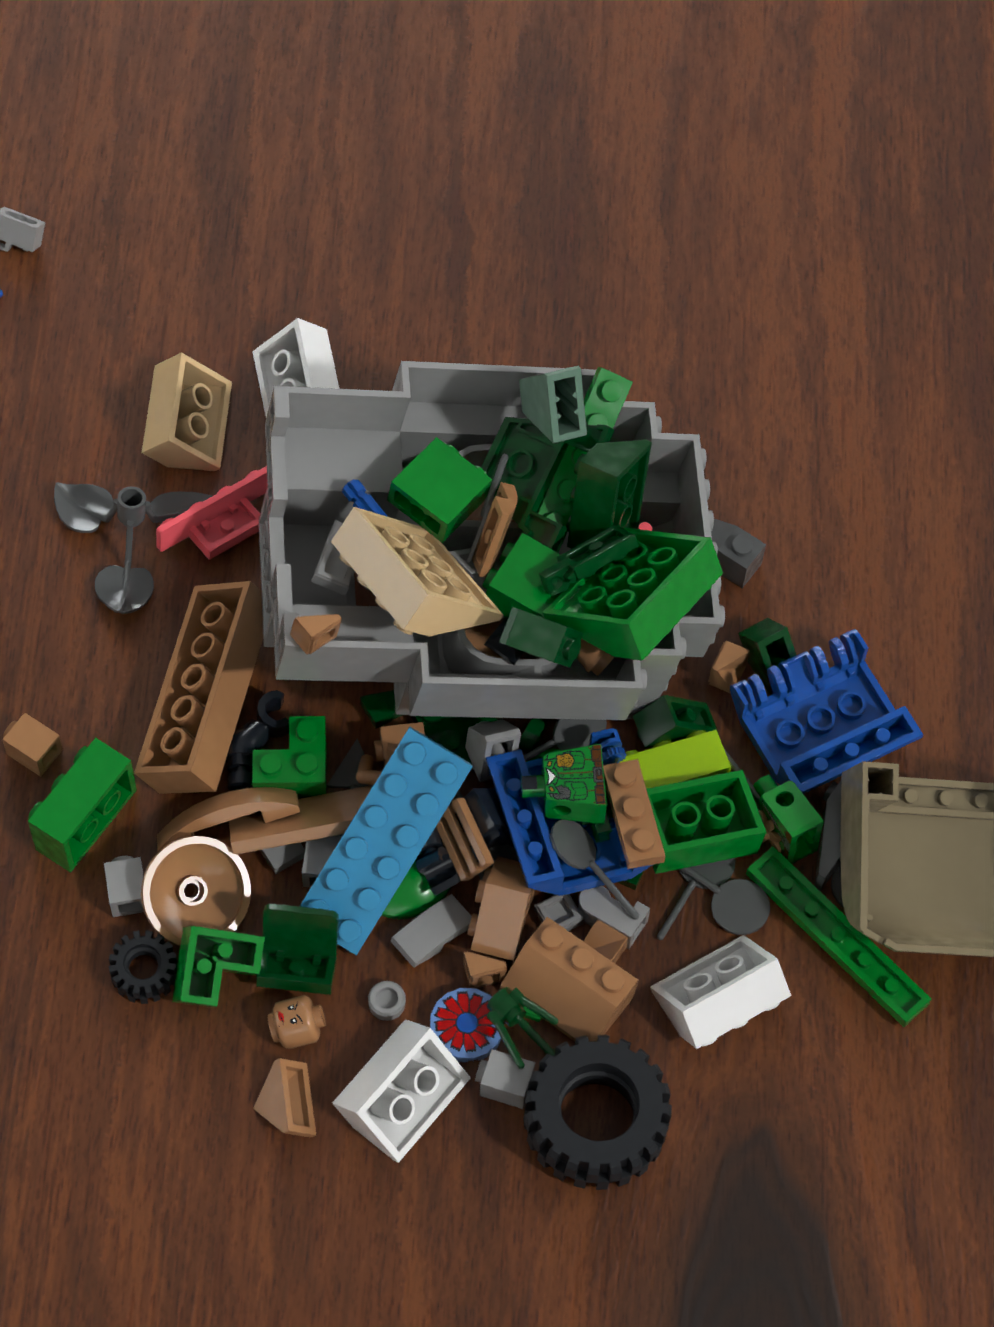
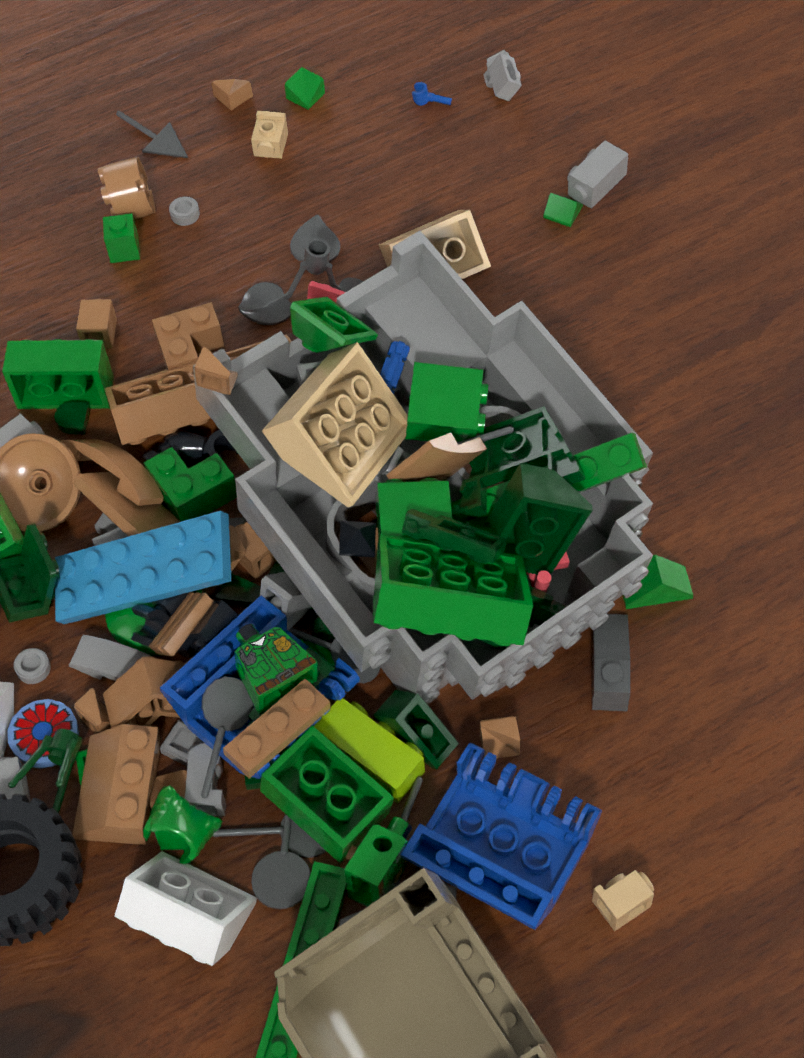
camera: 65 degrees right, 5 degrees down
(118, 682) = (186, 333): none -> medium nougat brick
(127, 826) = (73, 417): none -> dark green tile
(203, 232) = (597, 174): none -> light grey brick
(216, 285) = (562, 210): none -> green slope
(295, 358) = (538, 284): white slope -> none
(305, 524) = (326, 325): none -> green slope
(542, 637) = (343, 538): dark green slope -> none
(555, 403) = (562, 416): sand green slope -> none
(647, 951) = (180, 824): none -> green hair
(768, 646) = (539, 753): dark green slope -> none
(926, 666) = (624, 898): none -> tan brick

